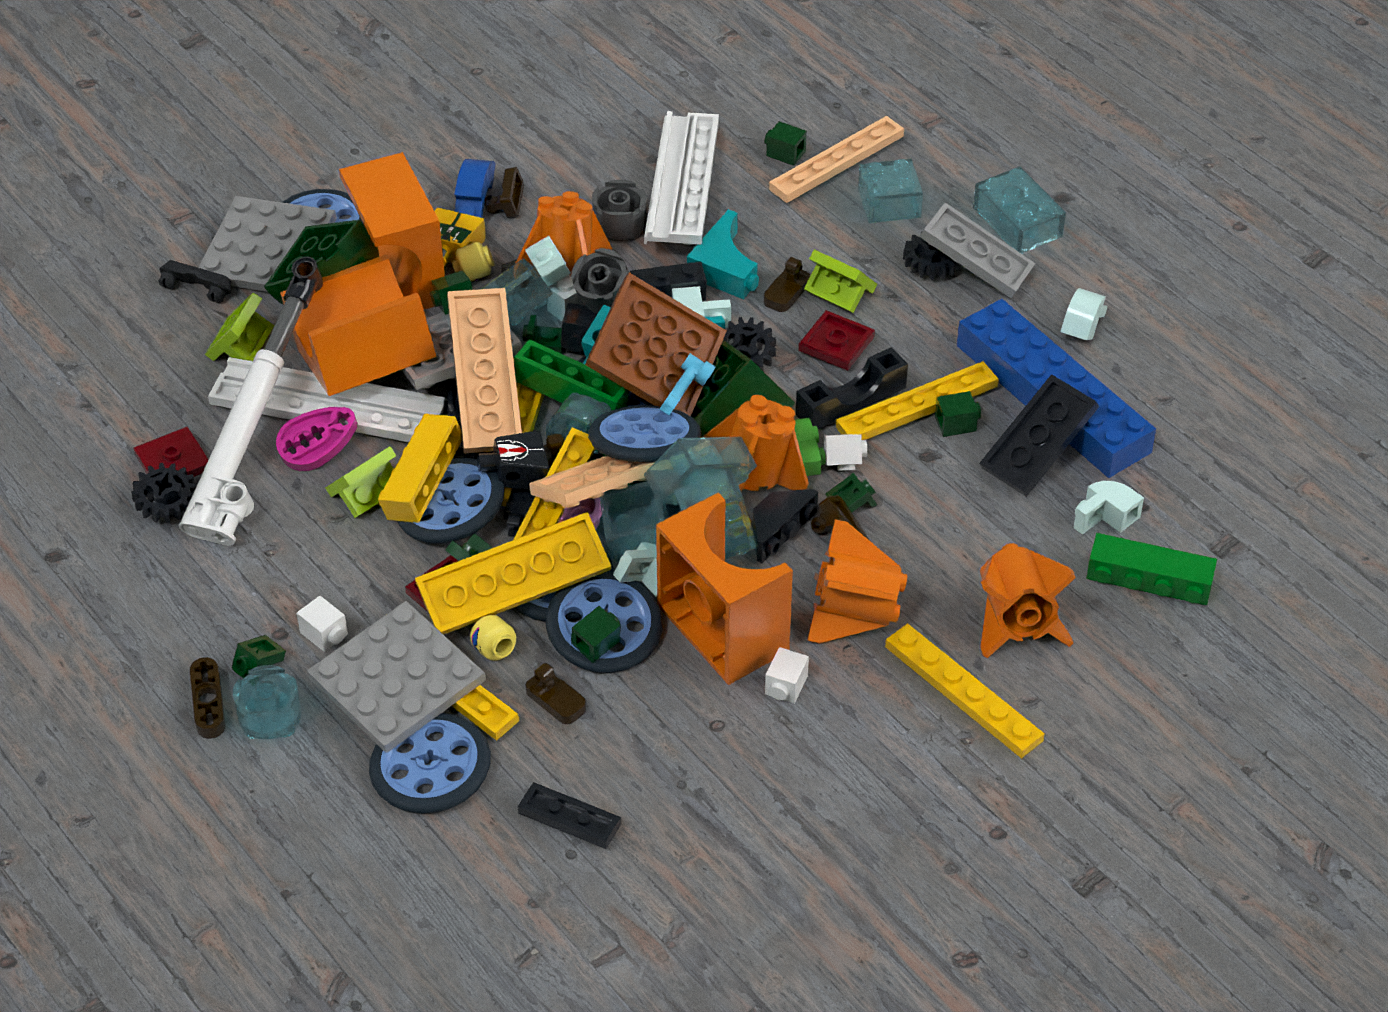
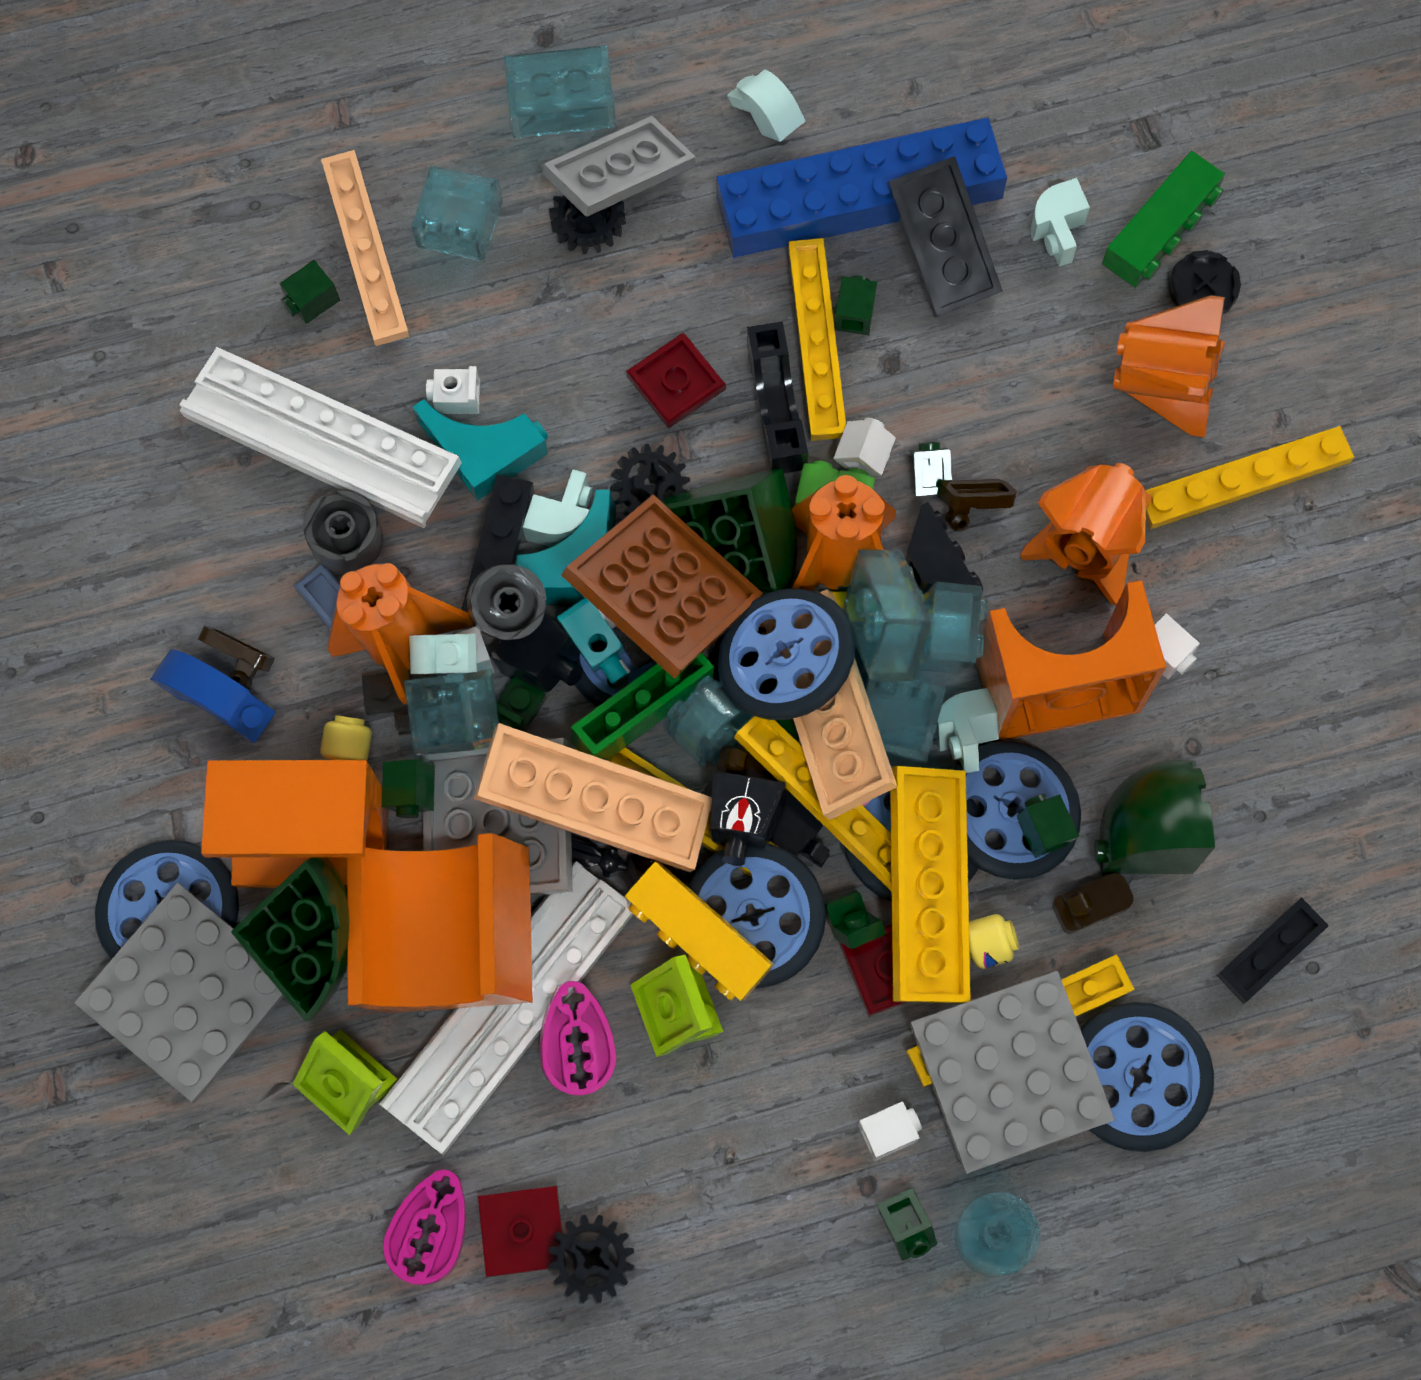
camera: 65 degrees left, 25 degrees up
(150, 400) = (446, 1243): none -> dark pink piece
(174, 271) = (176, 1130): black piece -> none
(202, 708) = (970, 1319): dark brown beam -> none
(212, 509) = (641, 1208): white piece -> none
(458, 231) = (281, 738): yellow torso -> none
(636, 703) = (1157, 822): none -> dark green brick
(694, 370) = (713, 554): medium azure brick -> none
(757, 227) = (461, 399): none -> white brick
(787, 286) = (558, 398): dark brown piece -> none
(837, 282) = (588, 336): lime bracket -> none
(1115, 617) = (1204, 275): none -> black tile

